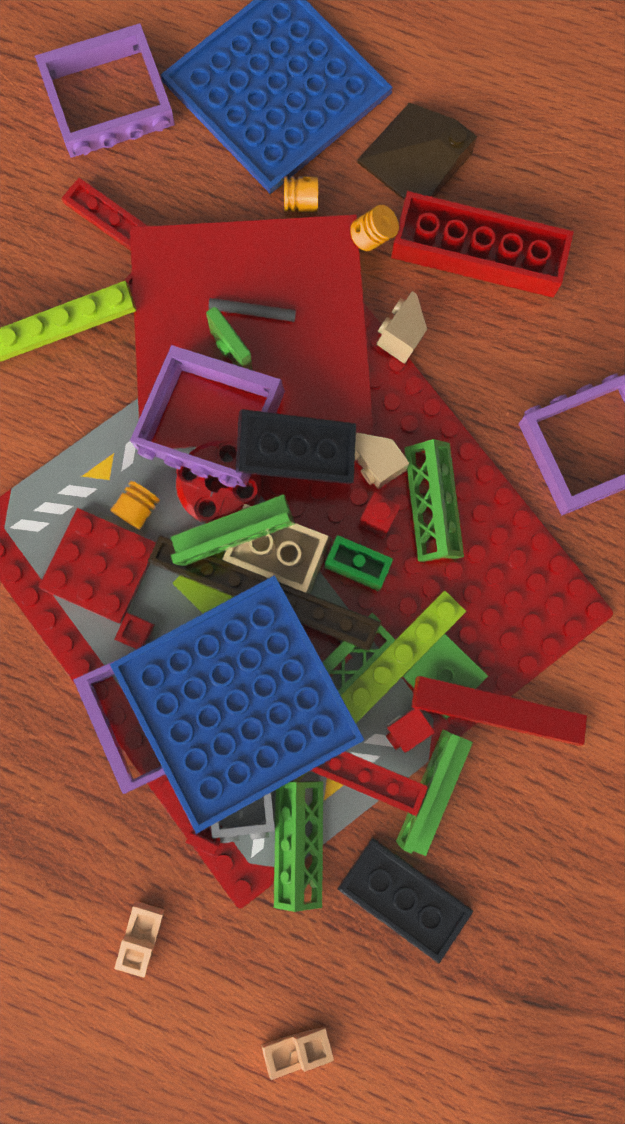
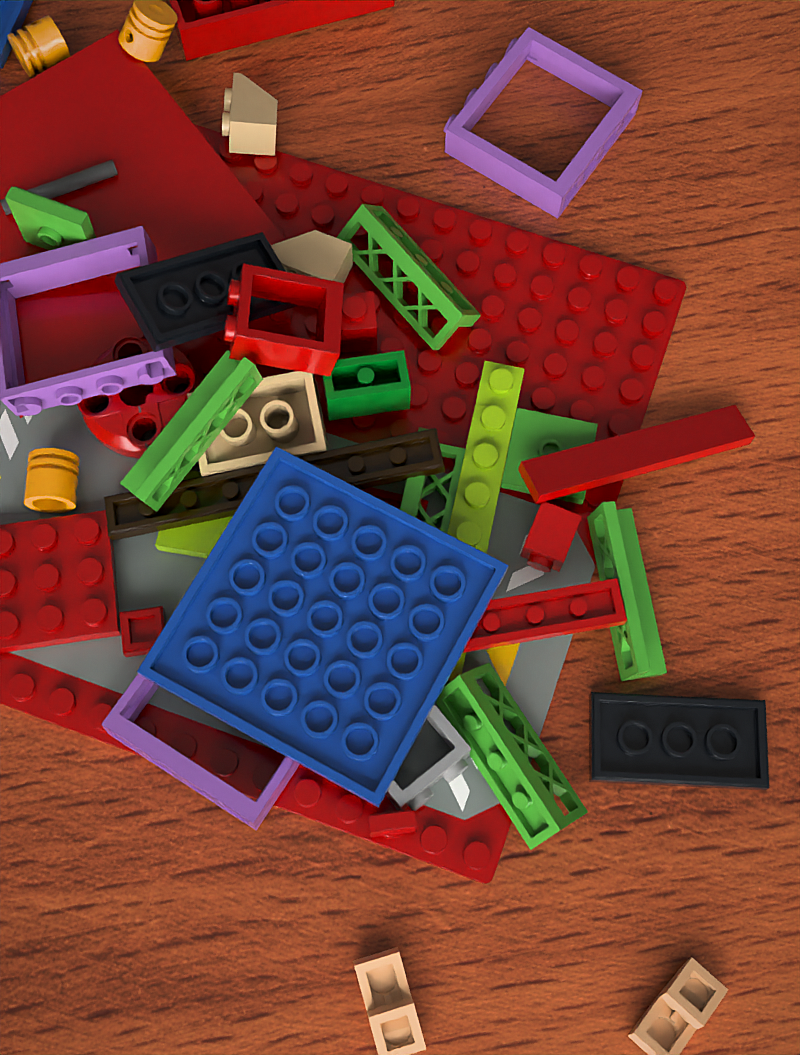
camera: 30 degrees left, 10 degrees down
(339, 535) = (281, 350): none -> red window

